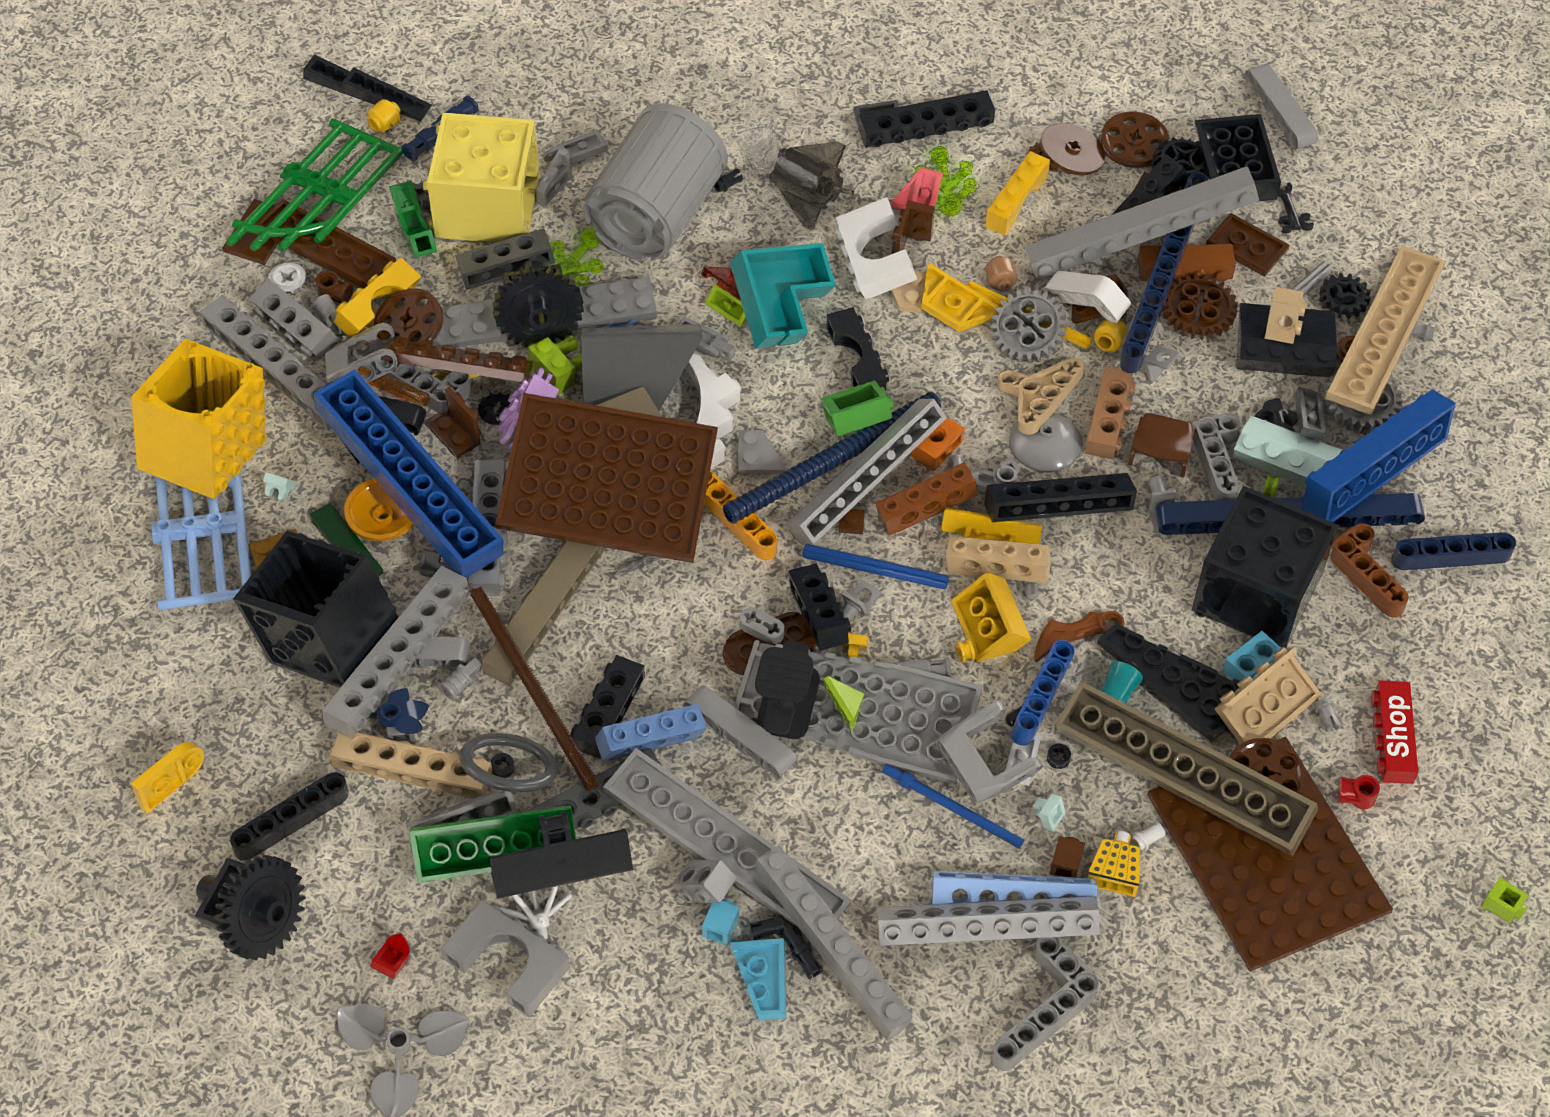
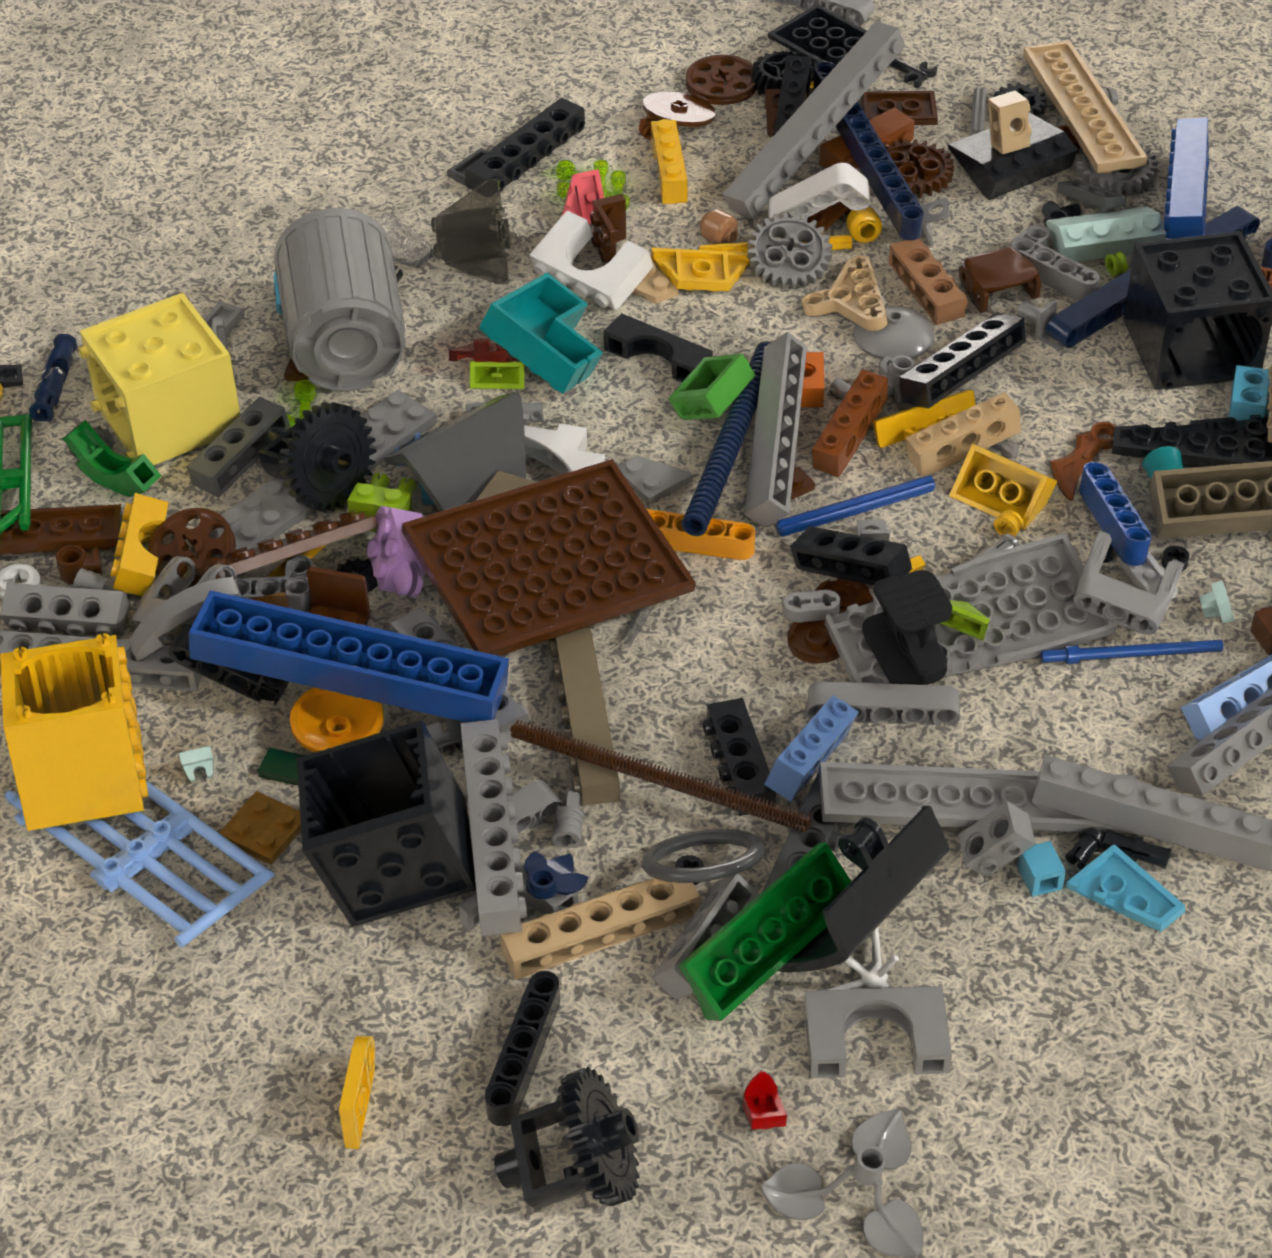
camera: 35 degrees left, 10 degrees down
(336, 367) = (173, 612): none -> light grey slope

